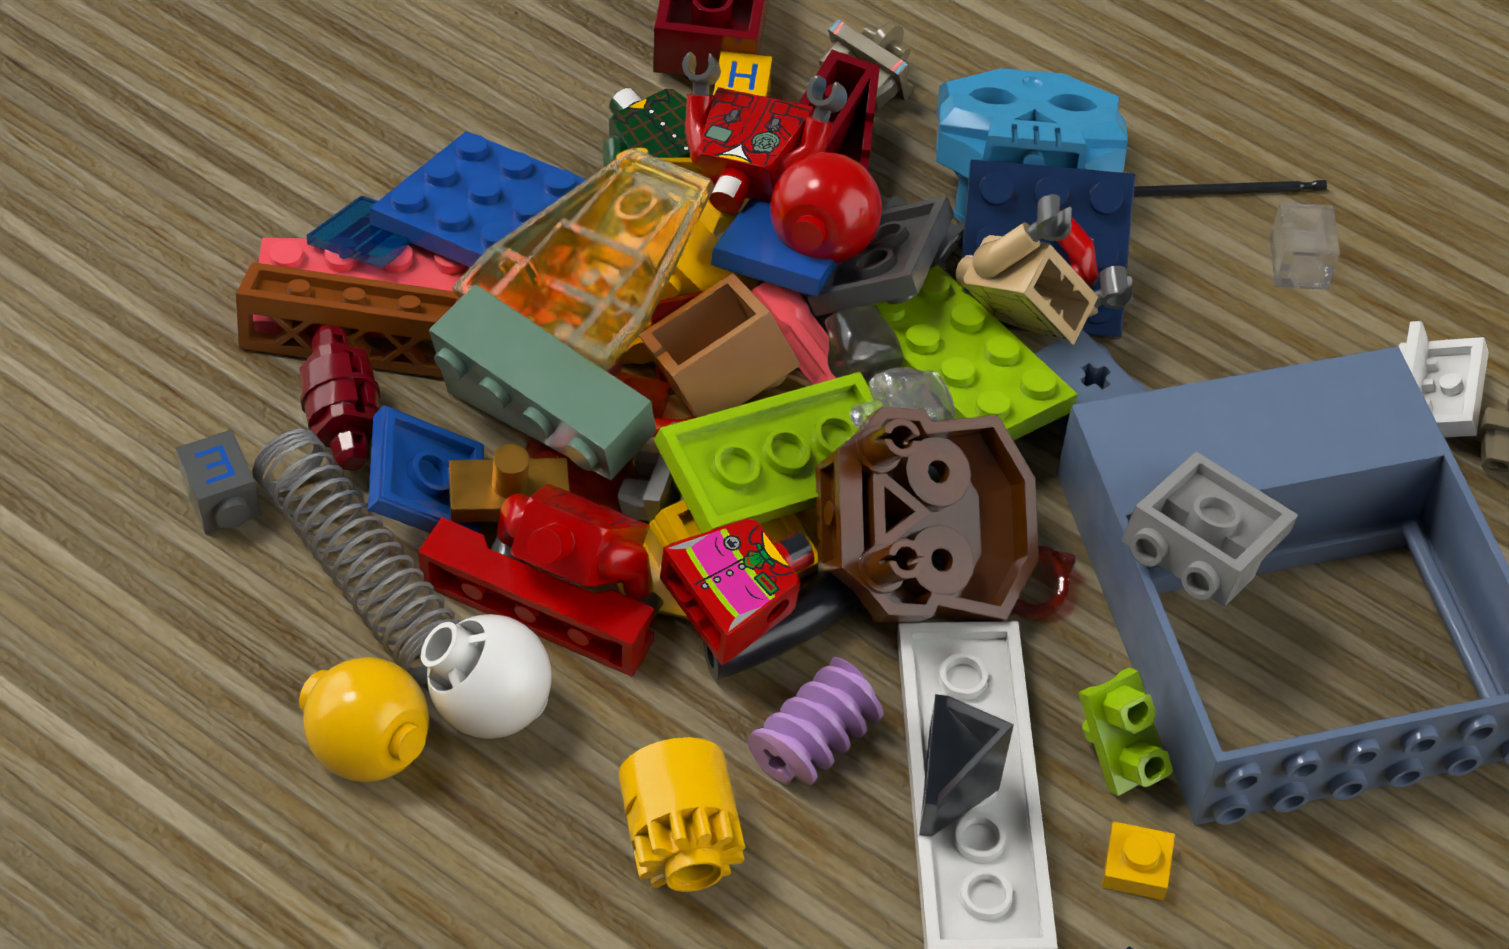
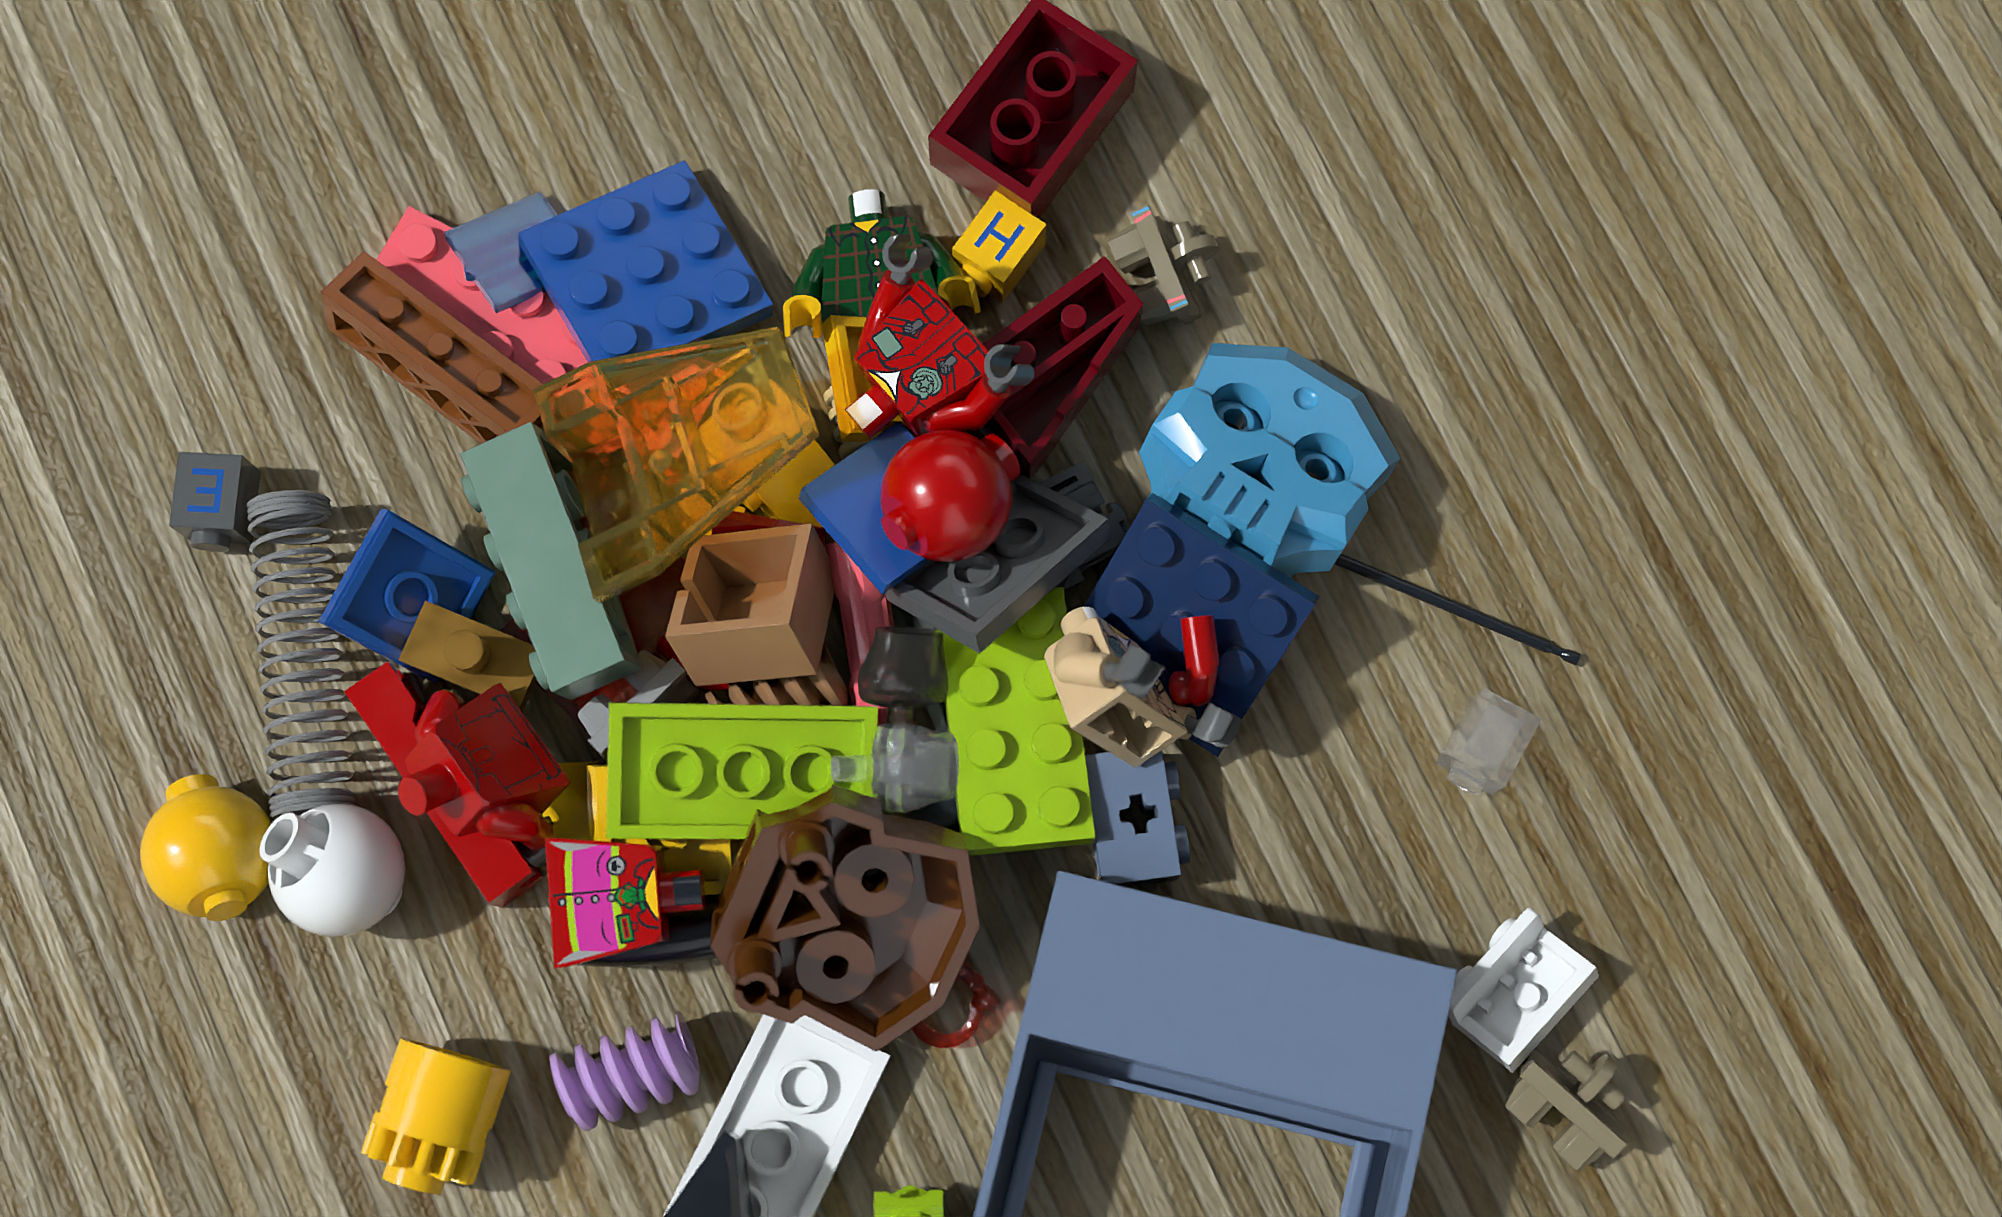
camera: 30 degrees right, 25 degrees up
(340, 396) = (375, 454): dark red piece -> none
(1207, 529) = (1088, 1109): light grey plate -> none

